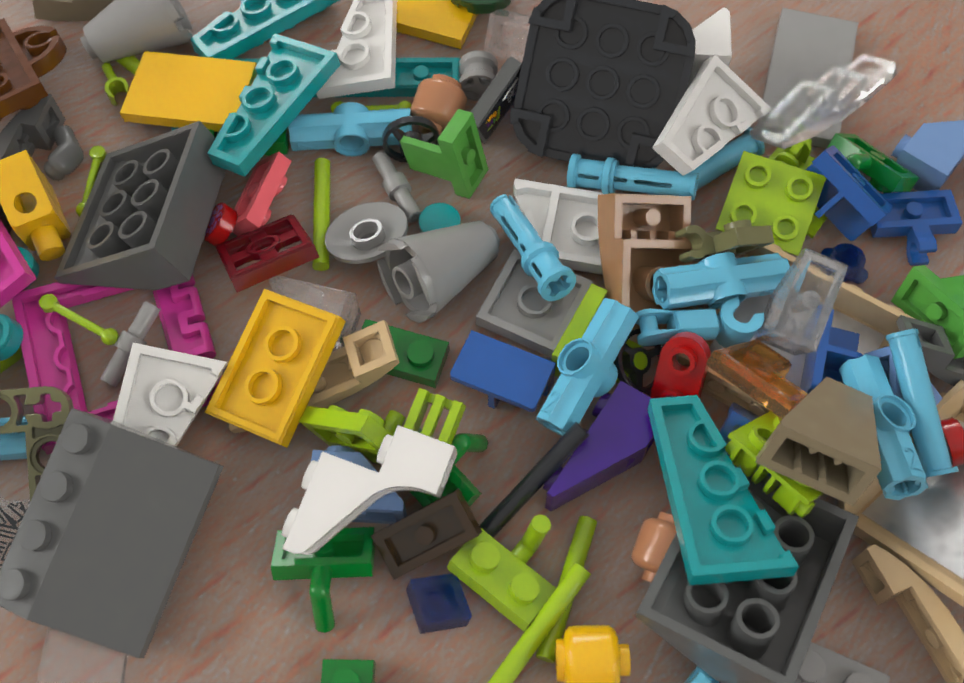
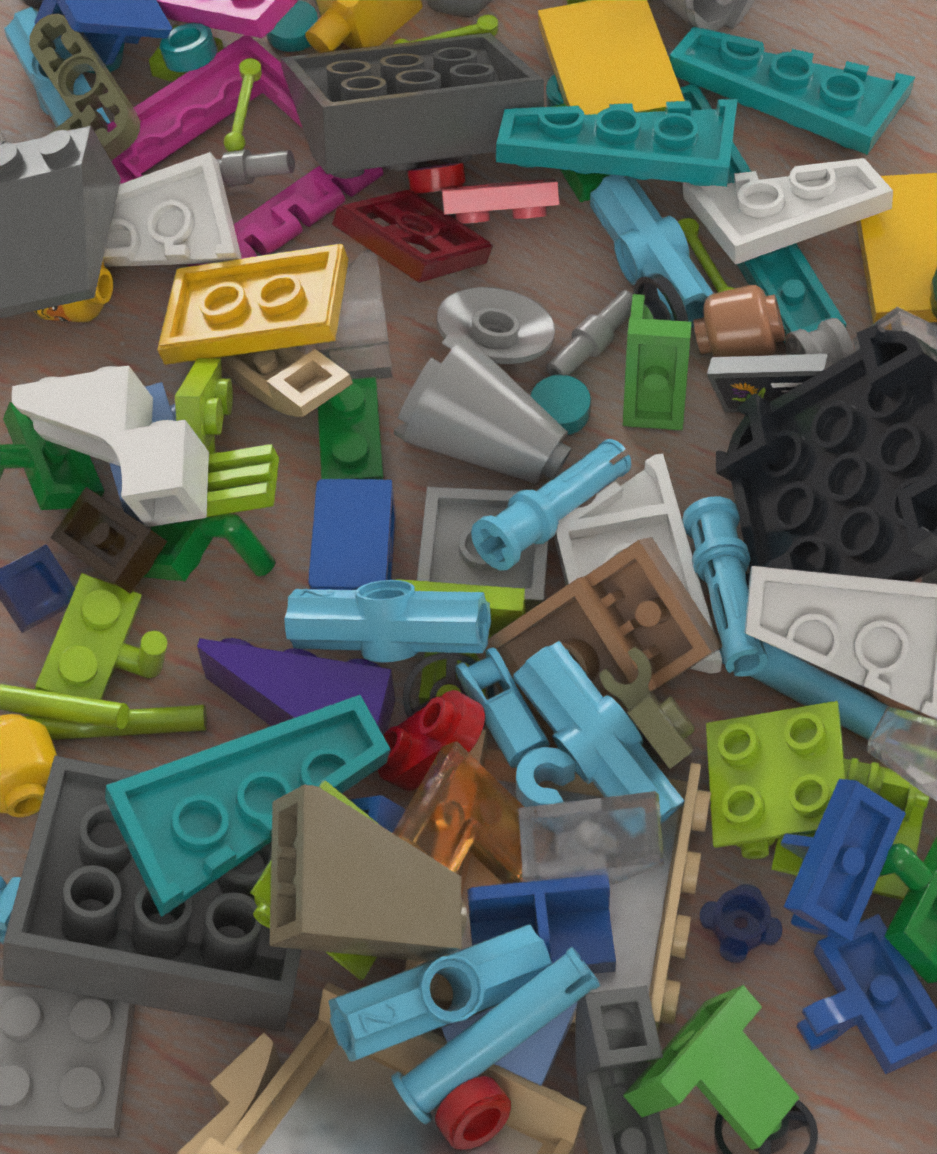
camera: 70 degrees right, 5 degrees down
(321, 212) = (526, 269): lime bar -> none
(534, 479) = (219, 625): black bar -> none

